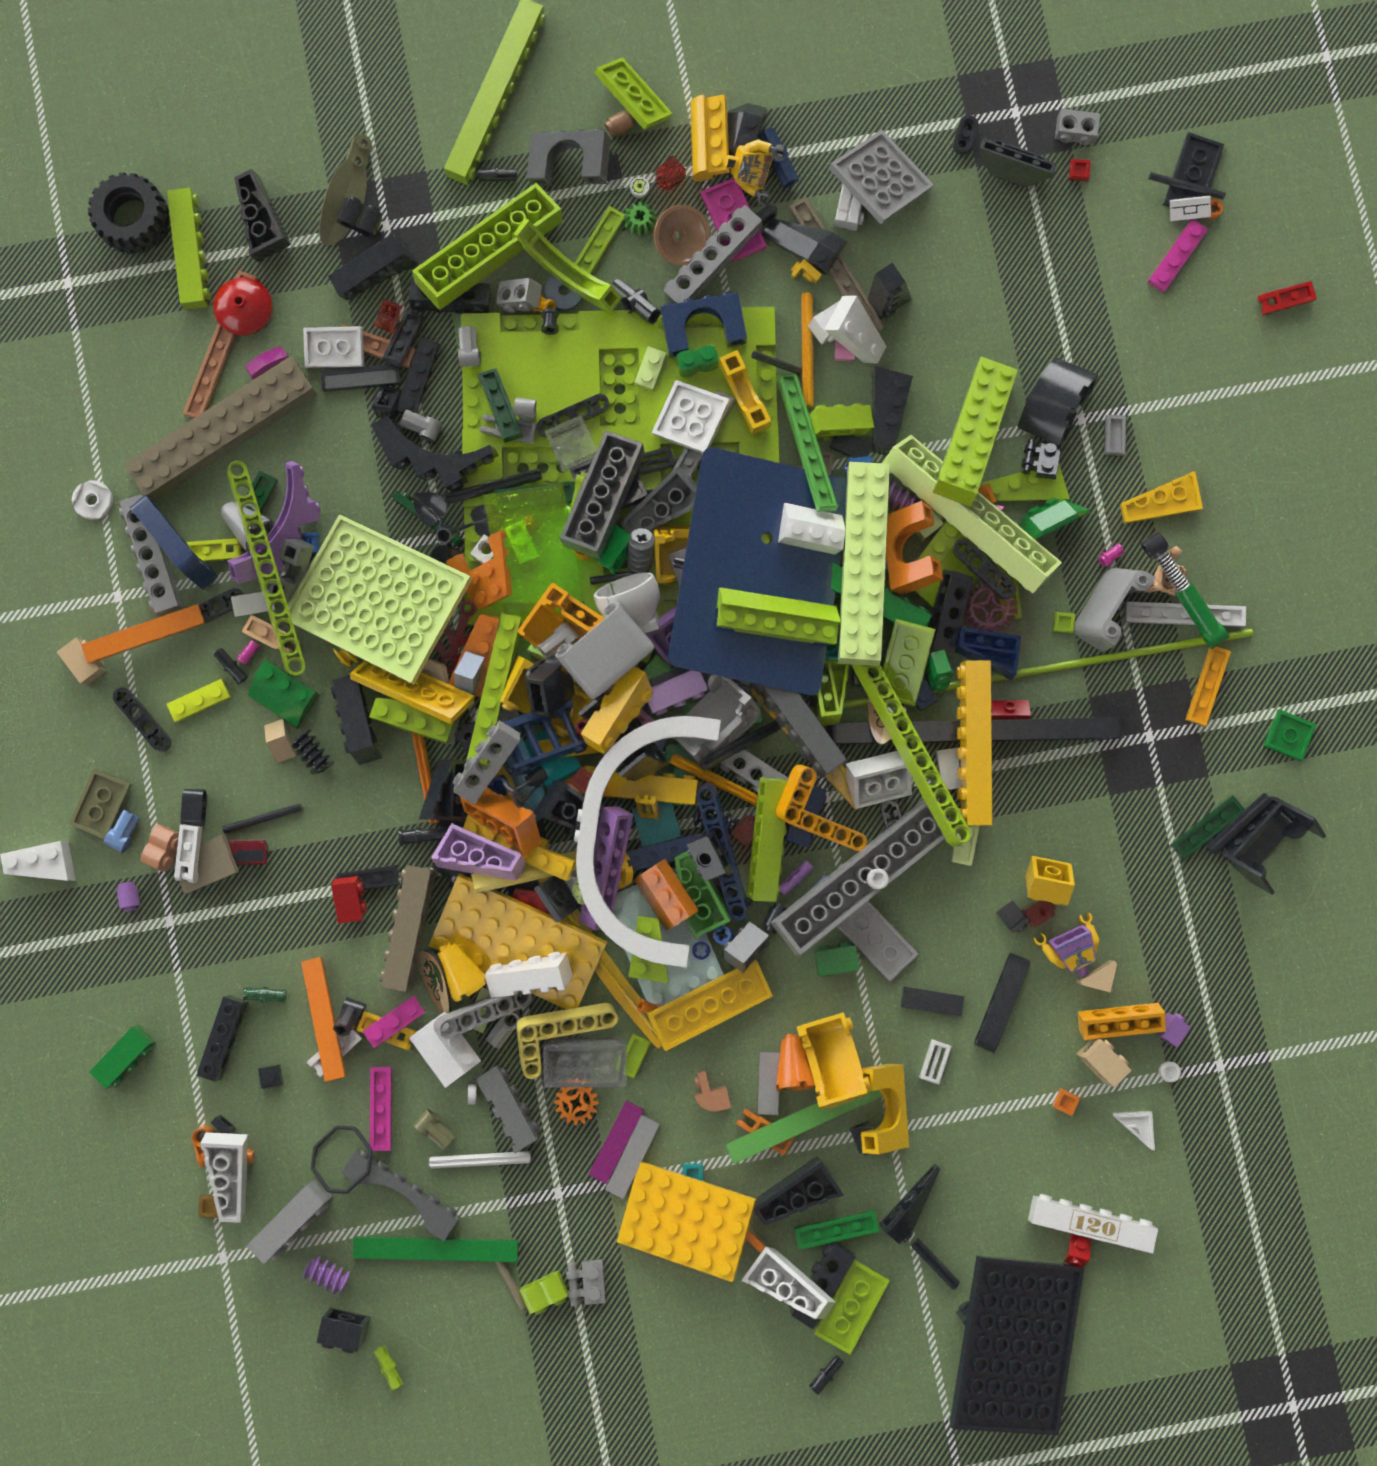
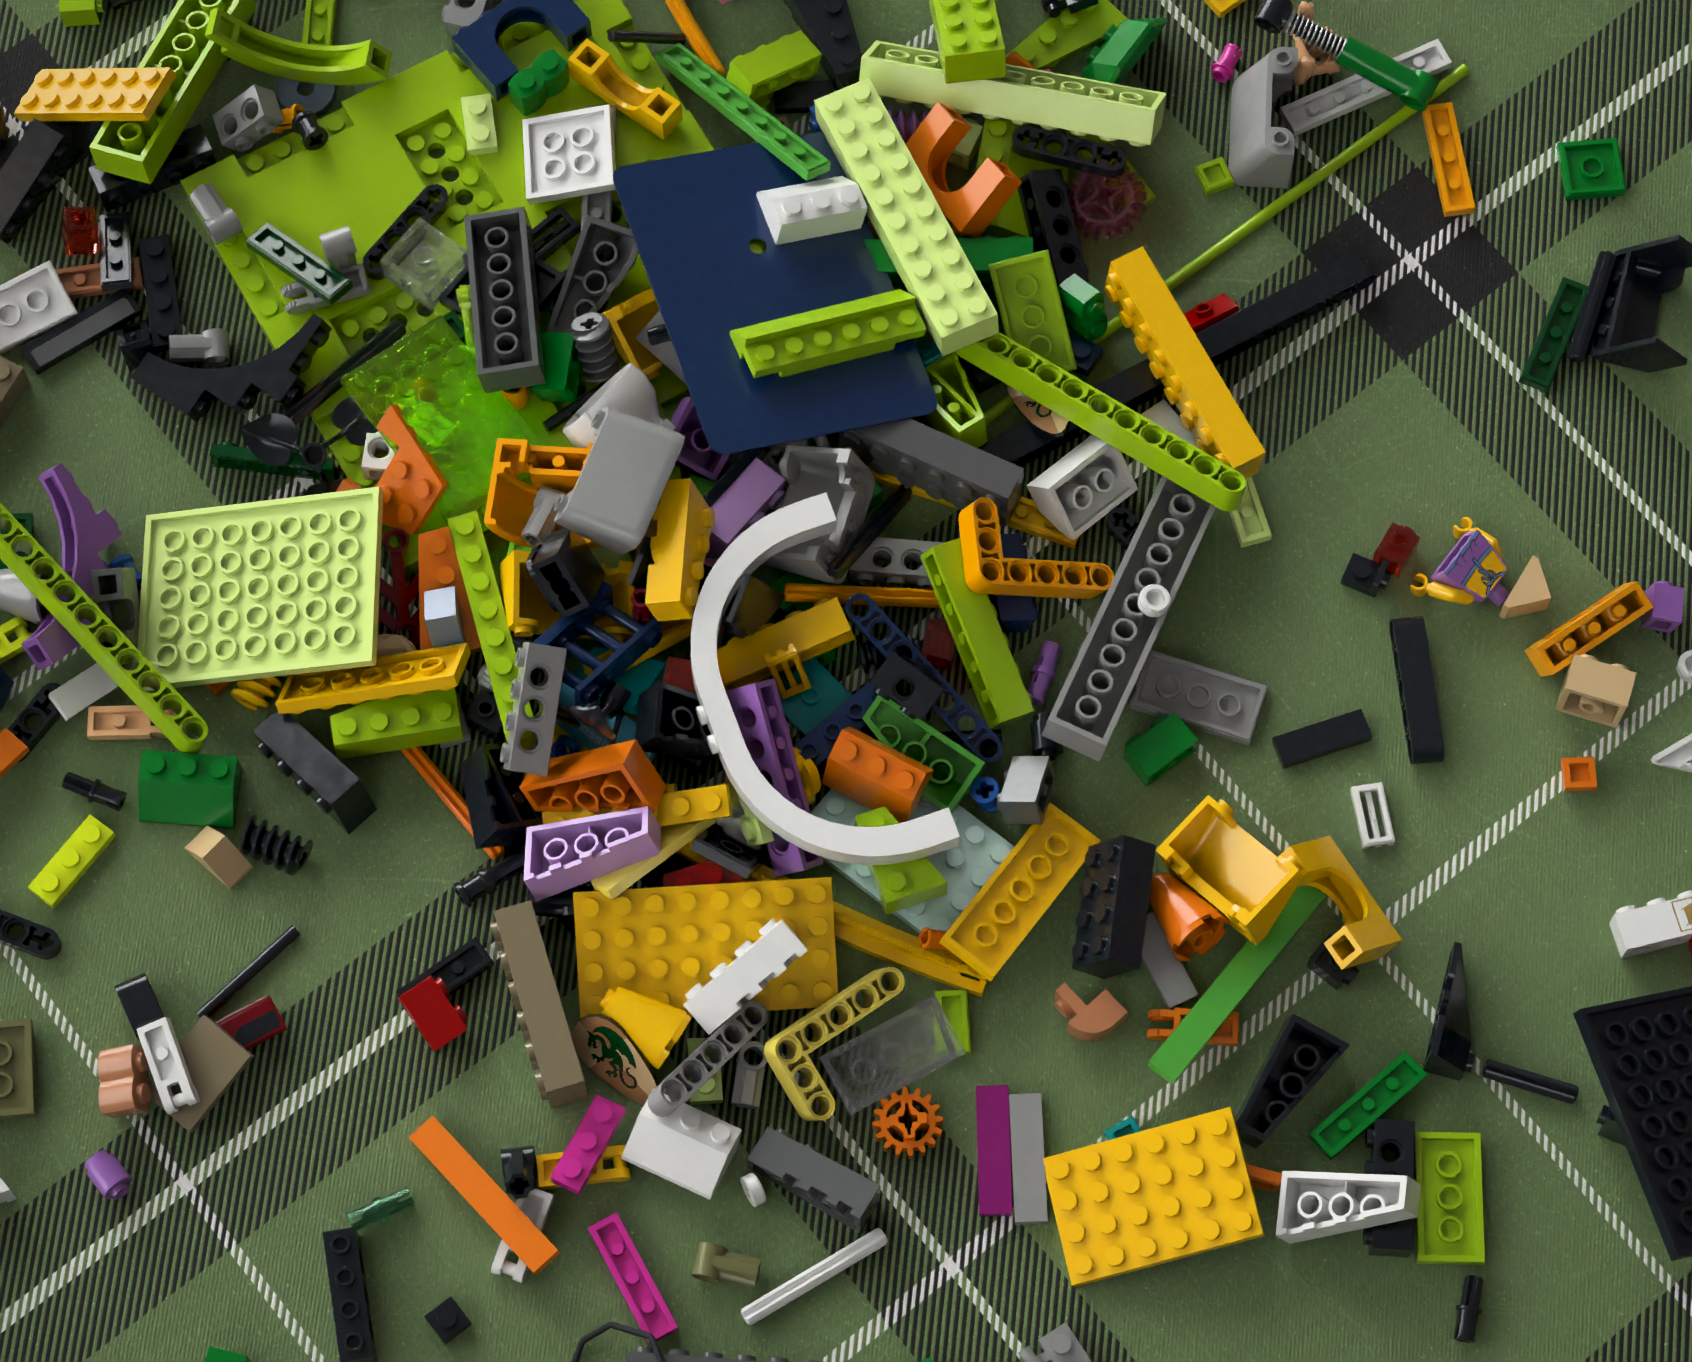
camera: 25 degrees left, 15 degrees down
(120, 836) = (53, 1099): medium blue piece -> none
(248, 653) = (110, 767): dark pink pin -> none
(435, 236) = (95, 94): none -> yellow plate
(636, 302) = (418, 51): black piece -> none
(707, 951) = (977, 826): clear blue bush -> none
(756, 1044) = (1113, 907): none -> black brick
(990, 646) = (1153, 233): clear blue wedge -> none
(1049, 880) = (1386, 497): yellow brick -> none

